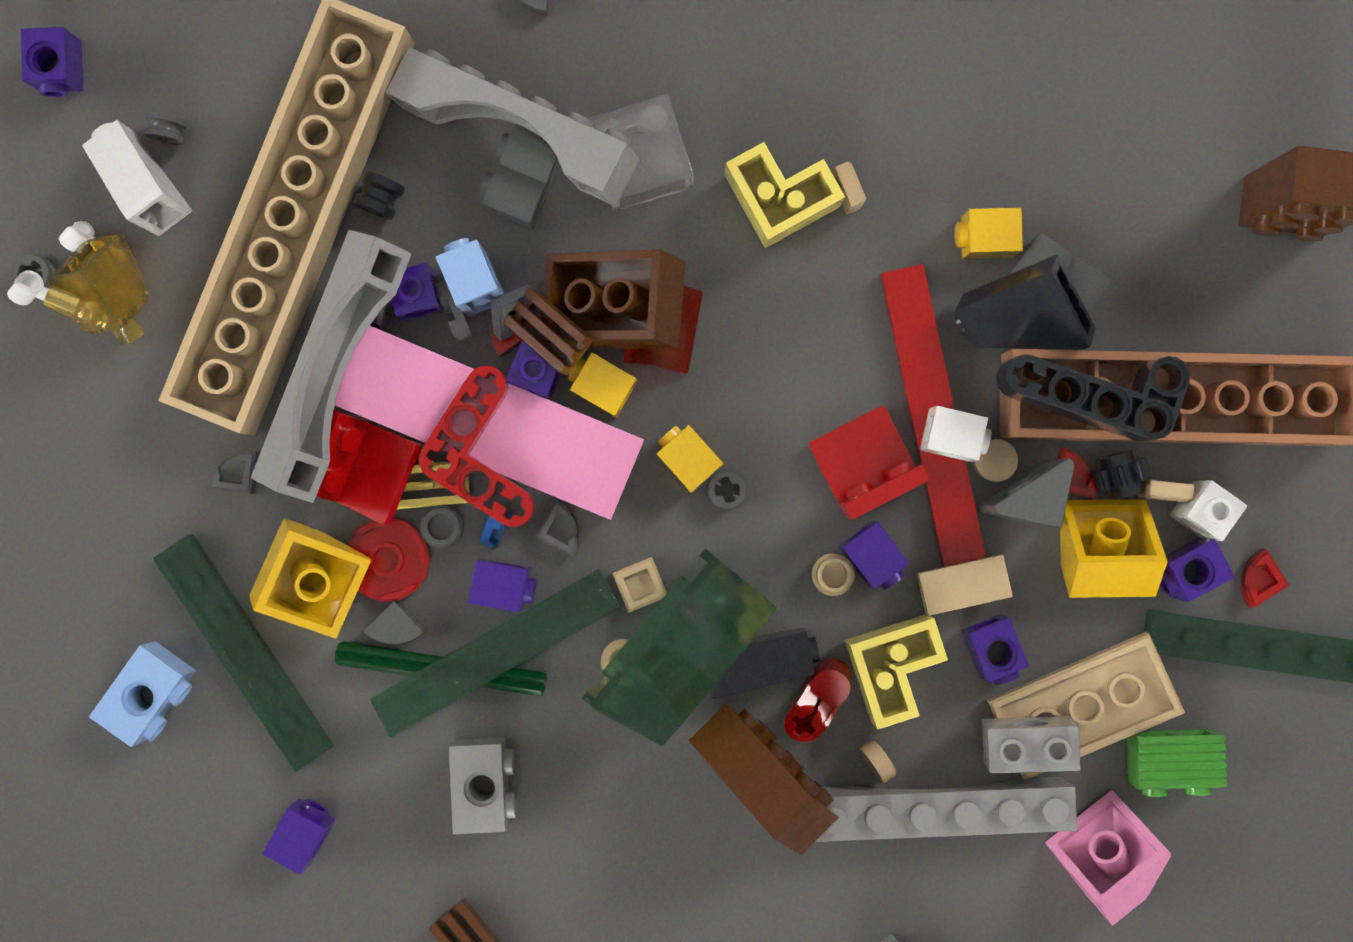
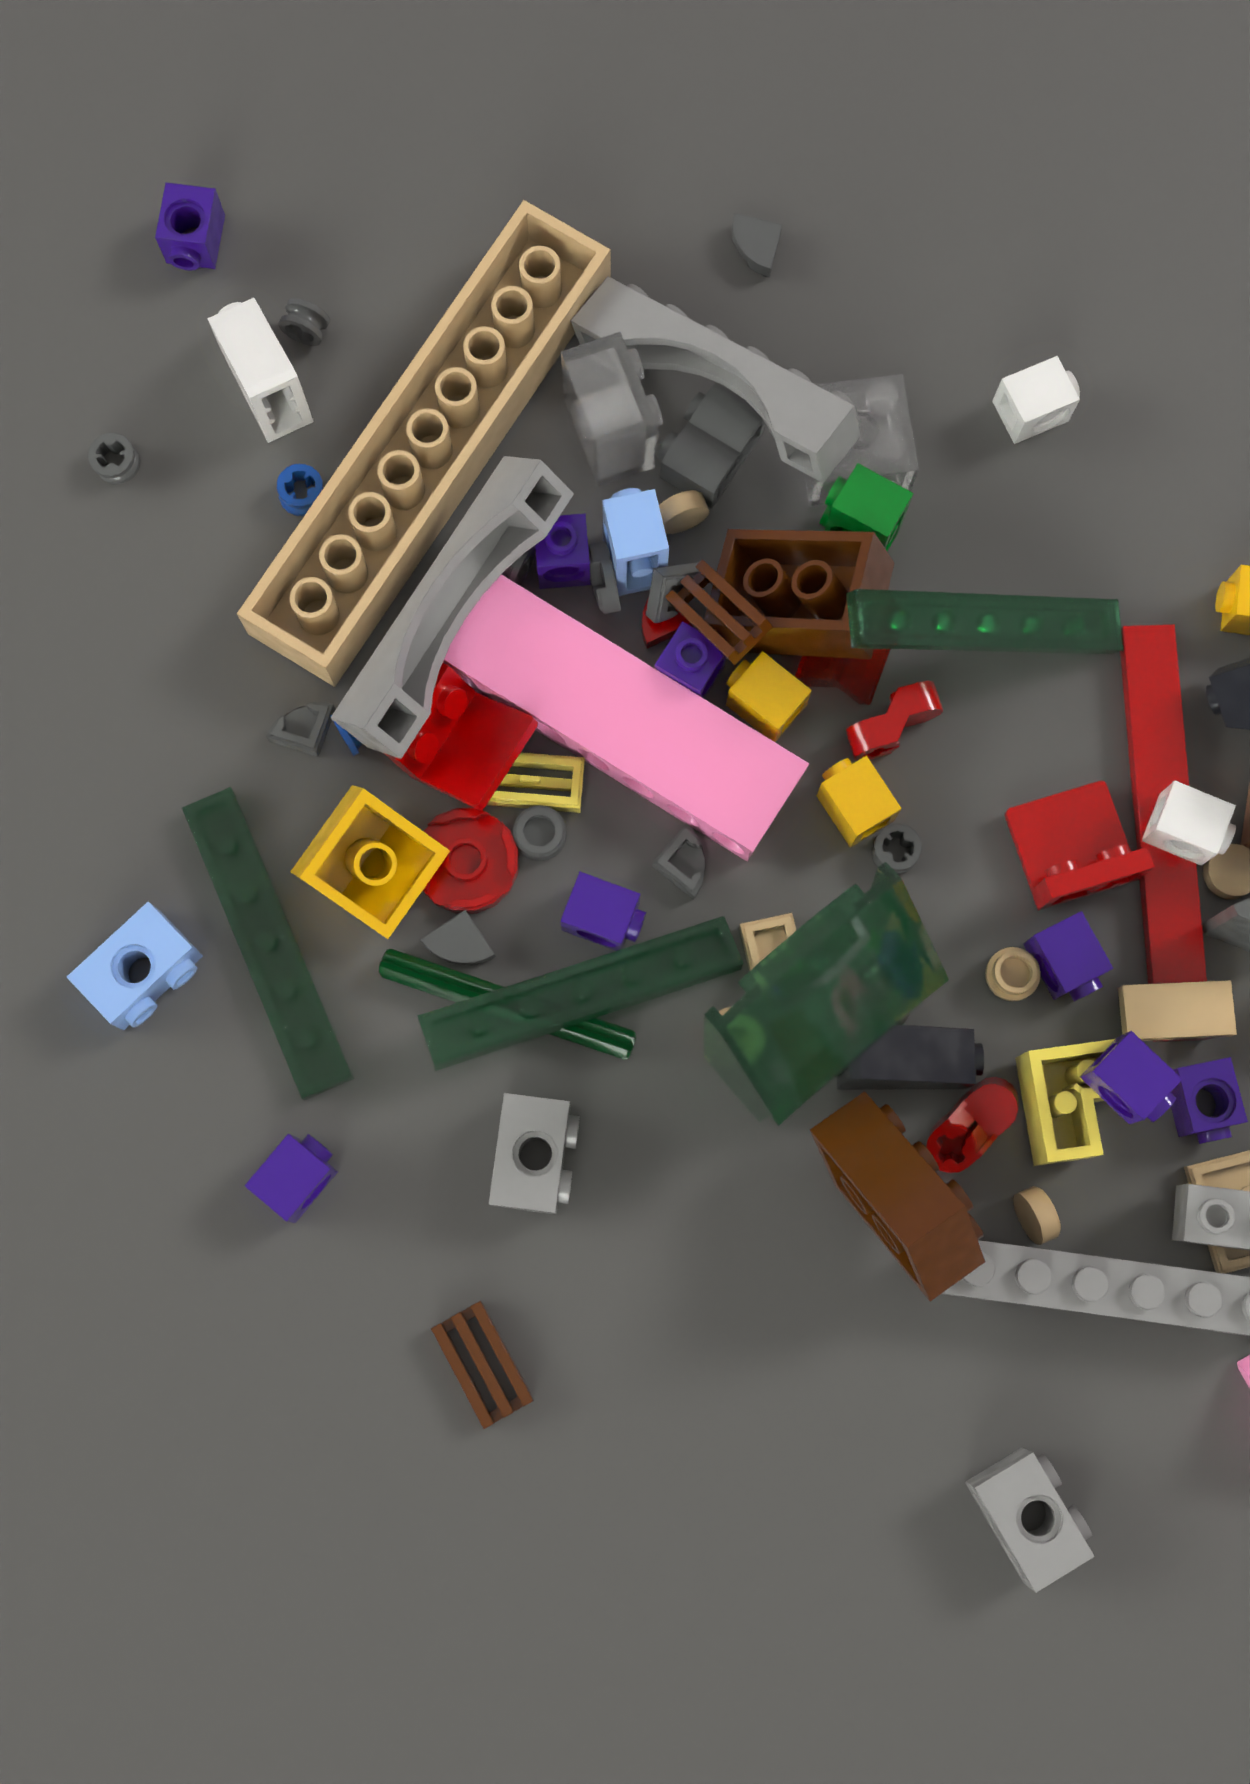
camera: 10 degrees right, 10 degrees down
(93, 287) = (189, 471): clear yellow torso -> none
(180, 269) = (285, 484): none -> blue bush
(378, 195) = (538, 434): black wheel -> none
(426, 159) = (611, 408): none -> clear brick
(462, 463) = (587, 749): red beam -> none
(493, 532) = (606, 842): blue tile -> none
(507, 240) = (683, 511): none -> tan tile
(655, 221) = (866, 505): none -> green brick
(715, 373) = (881, 733): none -> red piece
(764, 302) = (983, 622): none -> clear green tile
(780, 205) = (1016, 523): light yellow brick -> none
(785, 88) = (1036, 399): none -> white brick
(850, 186) = (1096, 521): tan tile -> none
(933, 659) = (1132, 1079): none -> dark purple brick

